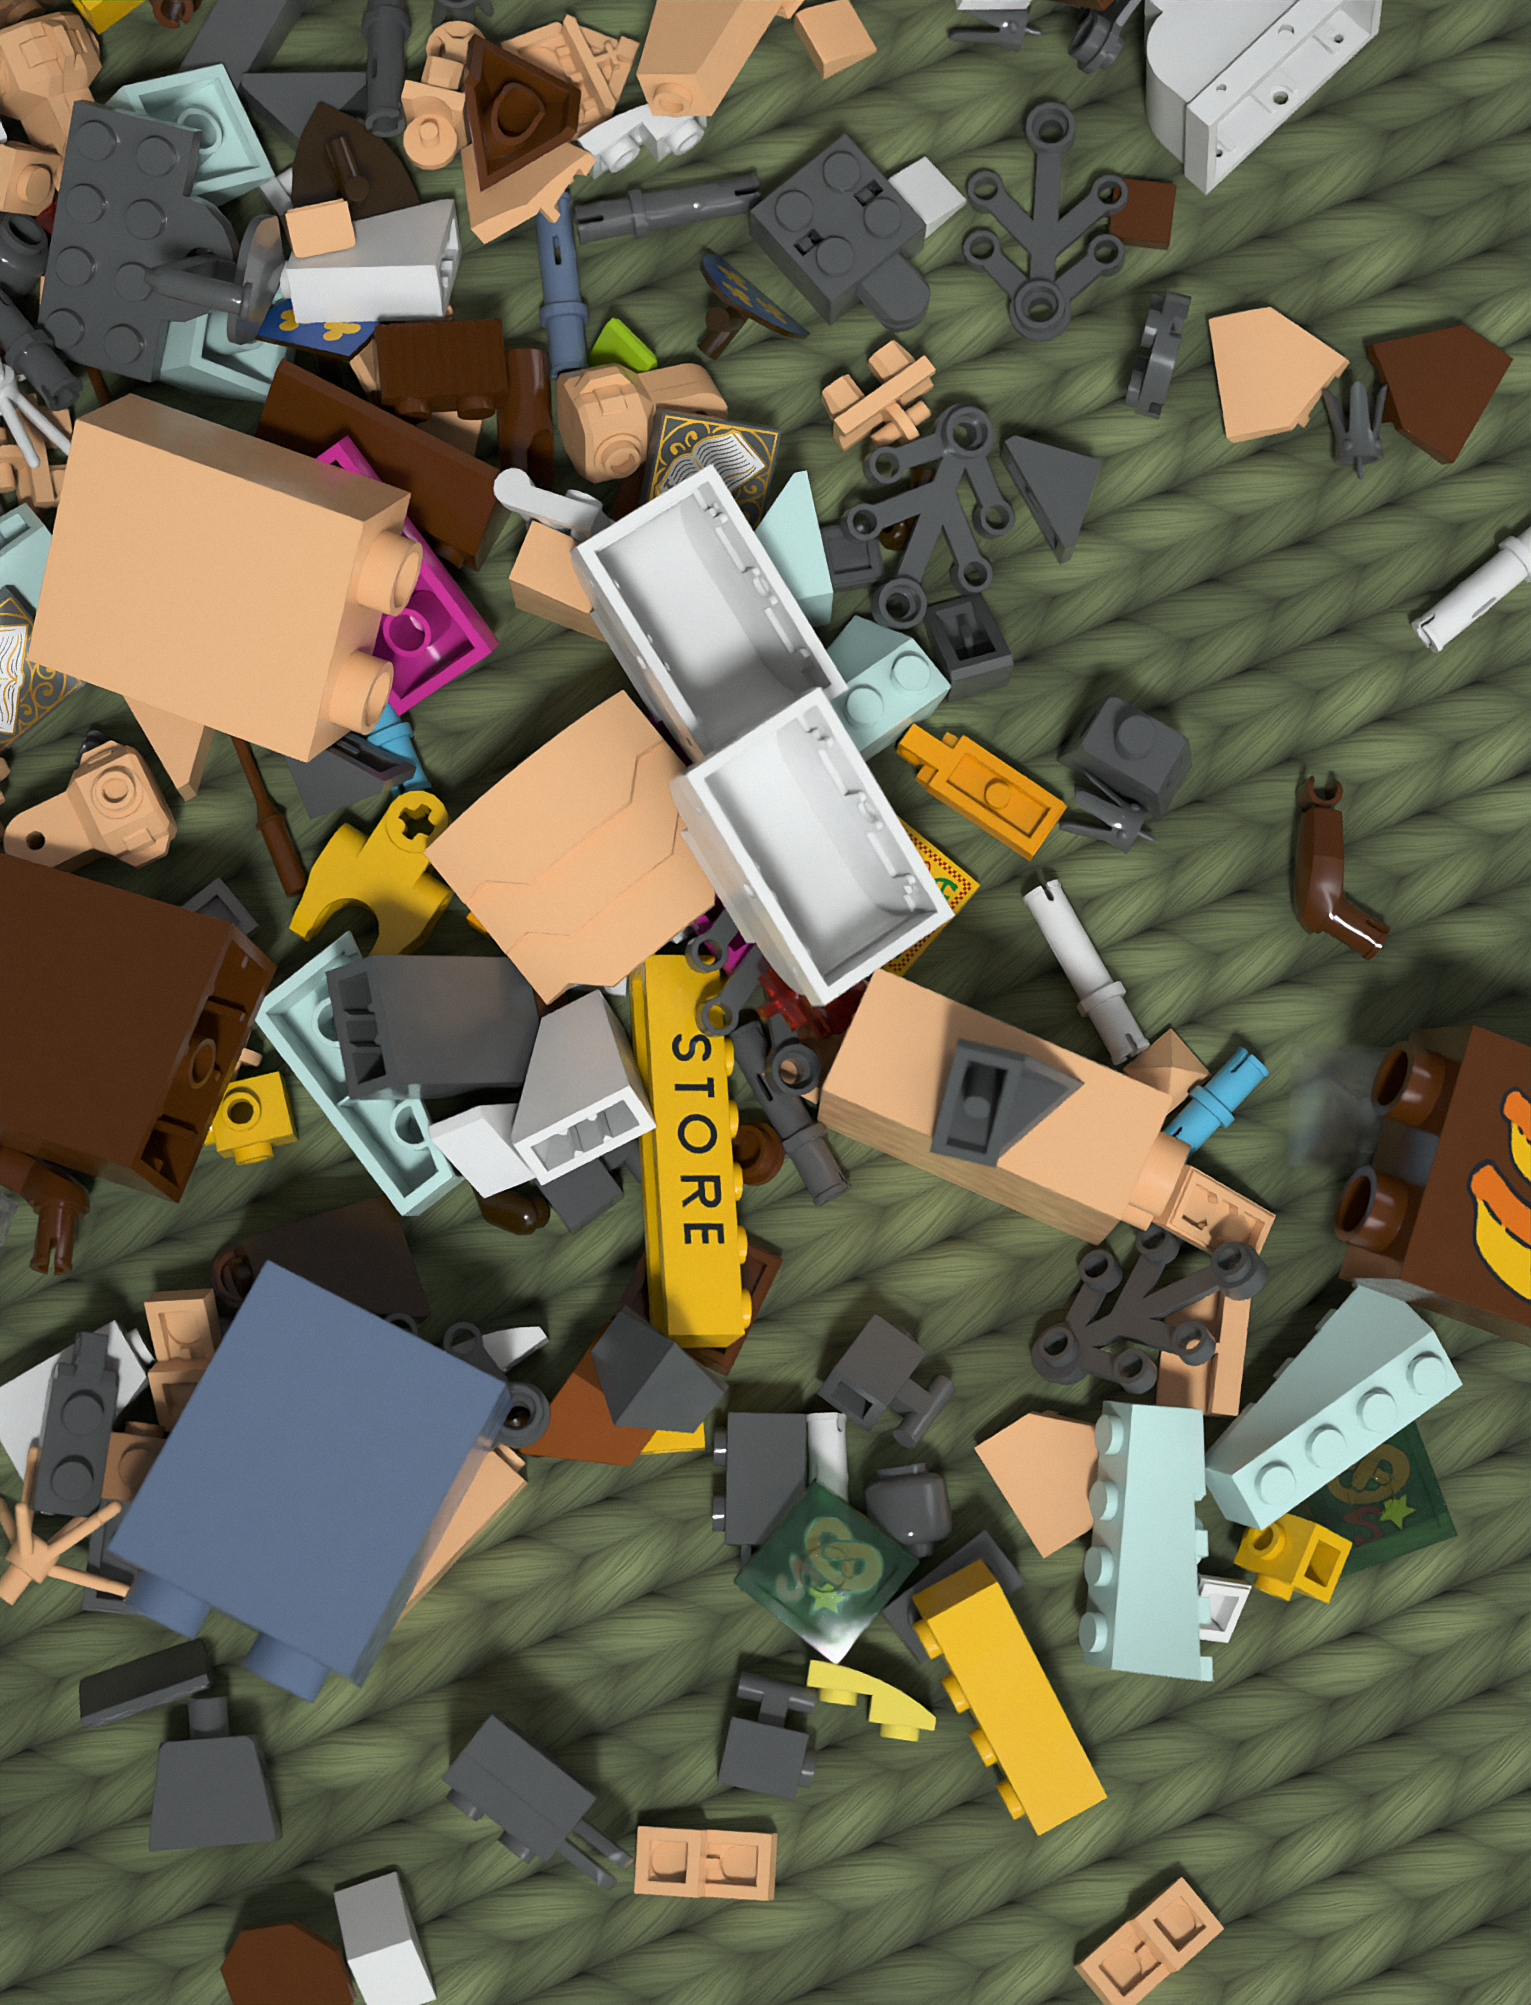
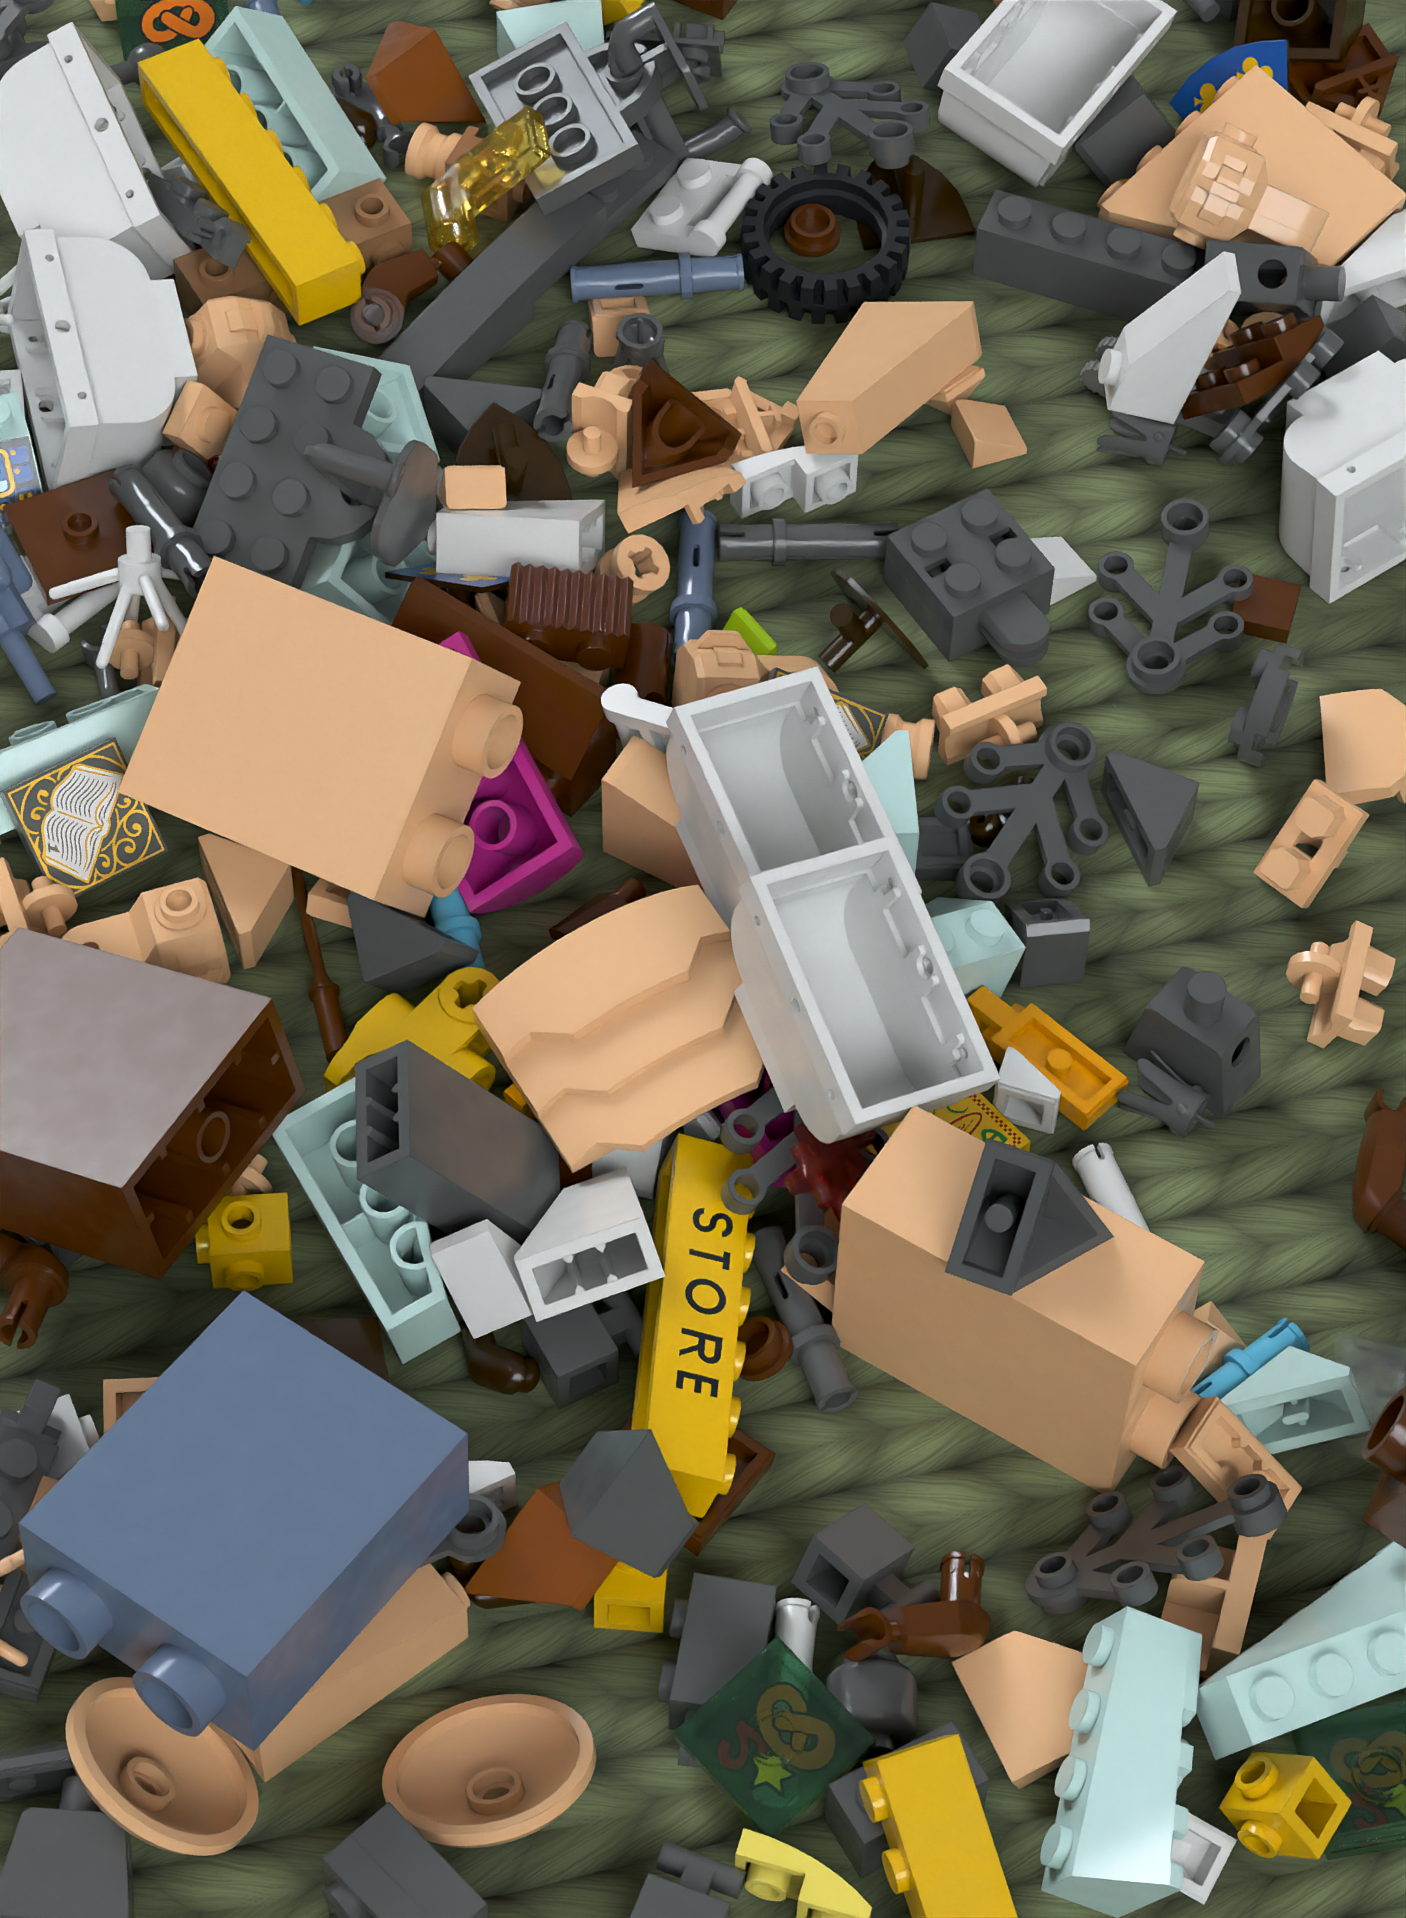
camera: 10 degrees right, 25 degrees down
(288, 1733) = (158, 1782): none -> light nougat dish
(480, 285) = (646, 555): none -> light nougat wheel
(526, 687) = (601, 904): none -> reddish brown bar
(554, 1612) = (490, 1770): none -> light nougat dish
(802, 448) = (921, 741): none -> light nougat wheel
(964, 1425) = (928, 1629): none -> reddish brown arm
(967, 837) = (1026, 1094): none -> white slope
(1226, 491) = (1318, 820): none -> light nougat hips
(1255, 663) = (1332, 982): none -> light nougat hips
(1261, 1141) = (1299, 1402): none -> light aqua slope

